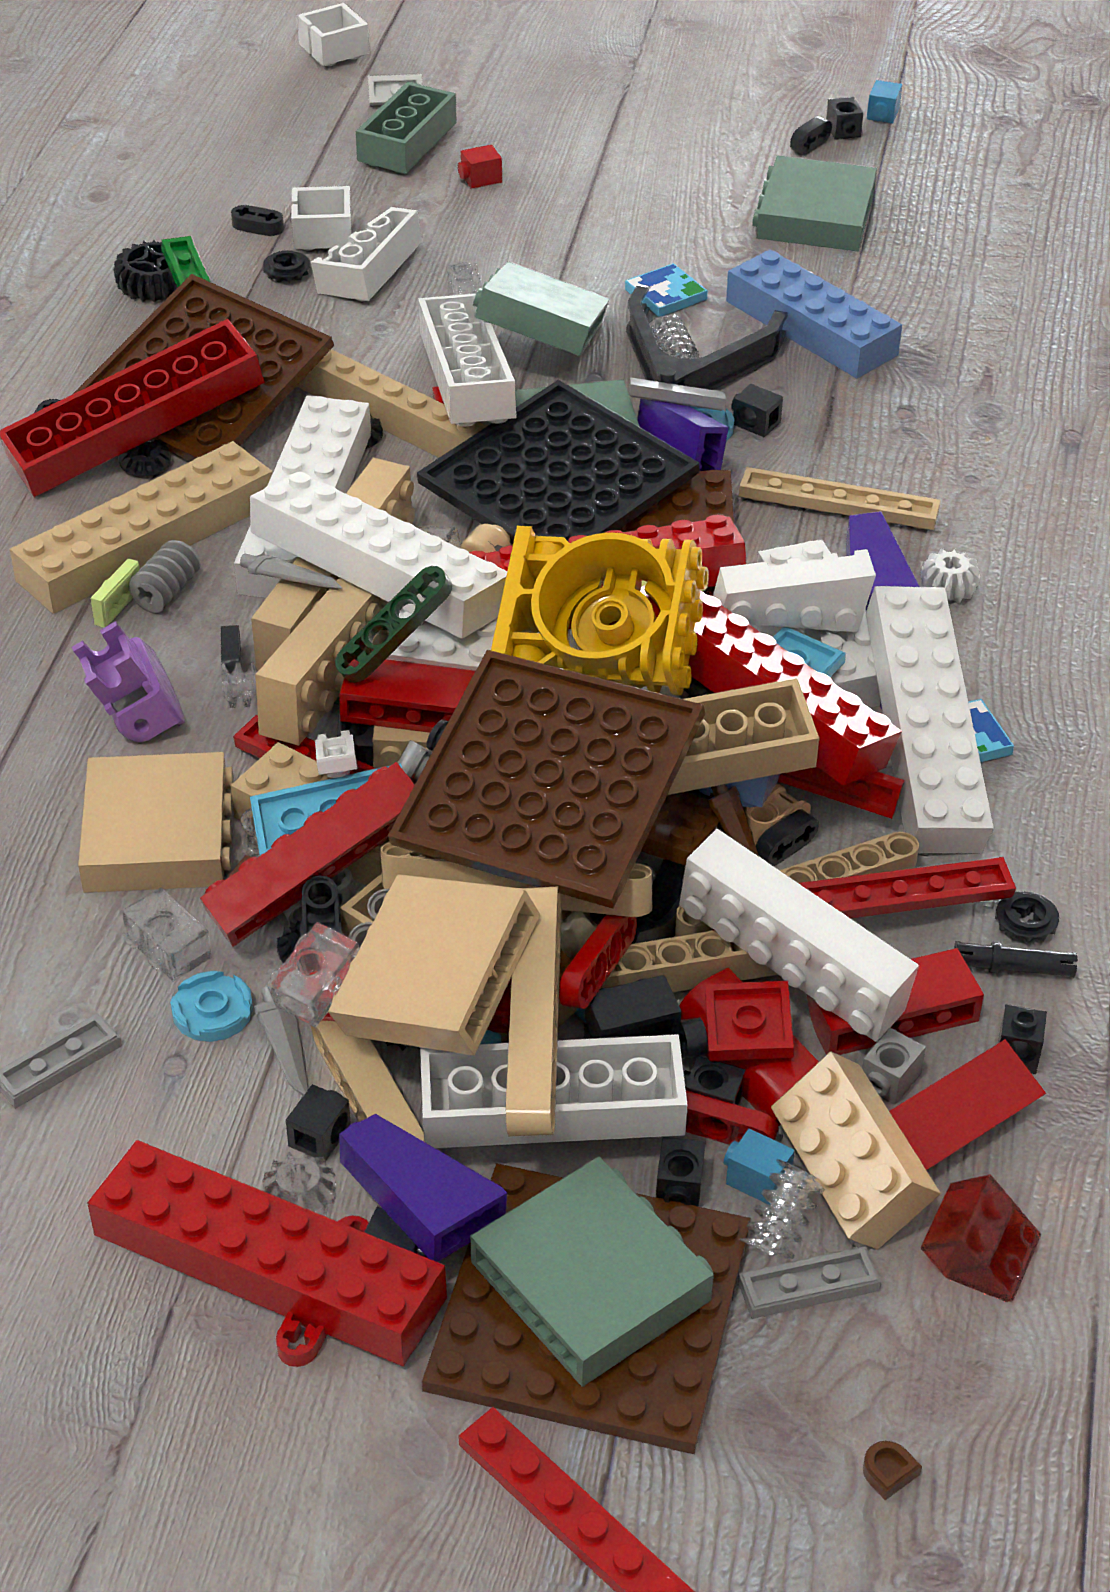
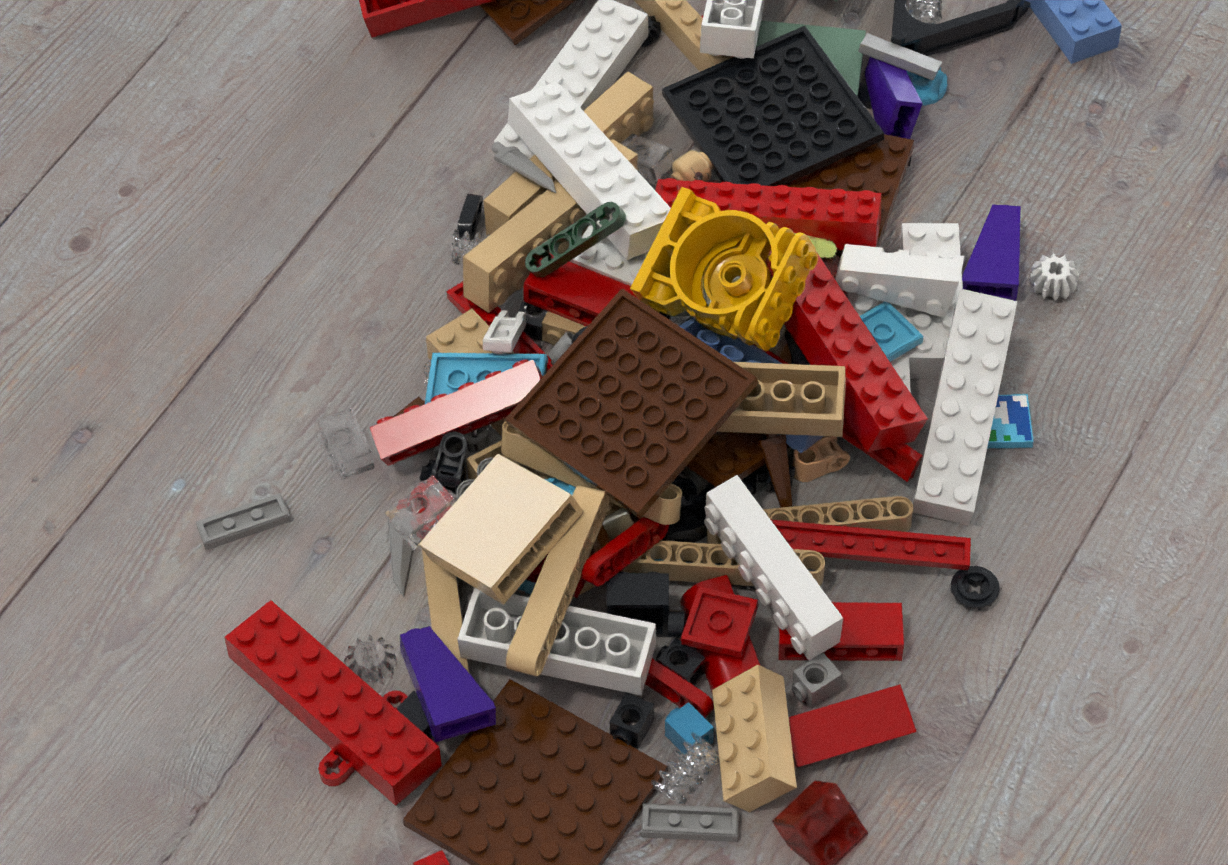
camera: 20 degrees right, 10 degrees up
(113, 594) = (402, 143): yellowish green plate -> none
(123, 669) = (381, 219): medium lavender piece -> none
(137, 464) = (460, 27): black gear -> none
(155, 822) = (367, 350): tan brick -> none
(164, 575) = (441, 136): light grey piece -> none
(179, 506) = (441, 86): tan brick -> none
(211, 1006) = (360, 507): medium azure tile -> none
(318, 1121) = (400, 615): black brick -> none
(592, 1269) = (539, 774): sand green brick -> none
(757, 410) = (968, 81): black brick -> none
(787, 837) = (821, 477): black beam -> none
(838, 497) = (999, 182): tan plate -> none
(997, 957) = (948, 620): black pin -> none
(1025, 1033) = (920, 684): black brick -> none

